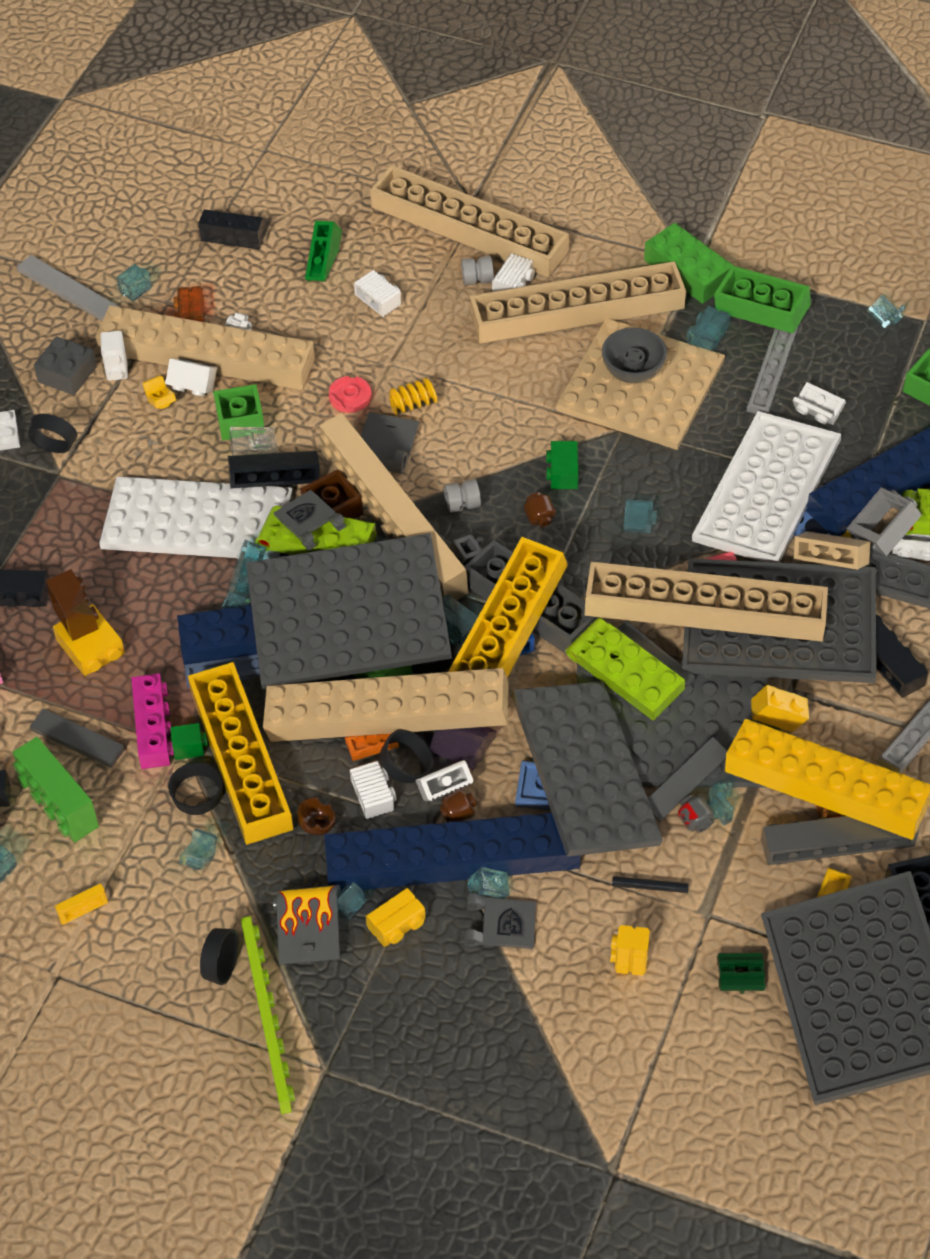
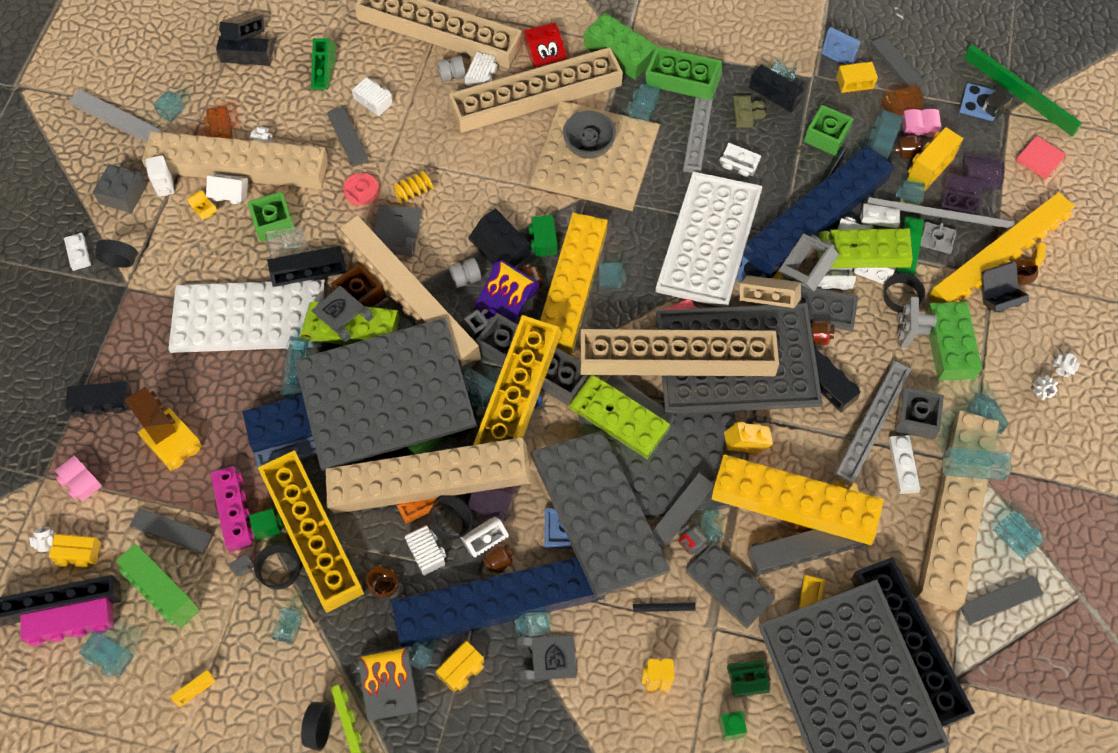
camera: 10 degrees left, 10 degrees up
(154, 782) = (241, 565): none -> dark grey plate
(232, 201) = (241, 26): none -> black brick
(341, 335) = (347, 137): none -> dark grey tile
(509, 466) = (499, 239): none -> black slope
(509, 517) = (506, 291): none -> dark purple door
(595, 252) = (544, 45): none -> red slope
(595, 511) = (574, 277): none -> yellow brick
(713, 1018) = (732, 725): none -> green brick
(734, 870) = (730, 585): none -> dark grey plate
(836, 351) = (743, 111): none -> olive hinge
(876, 327) = (776, 88): none -> black brick
(890, 604) = (822, 332): none -> reddish brown head

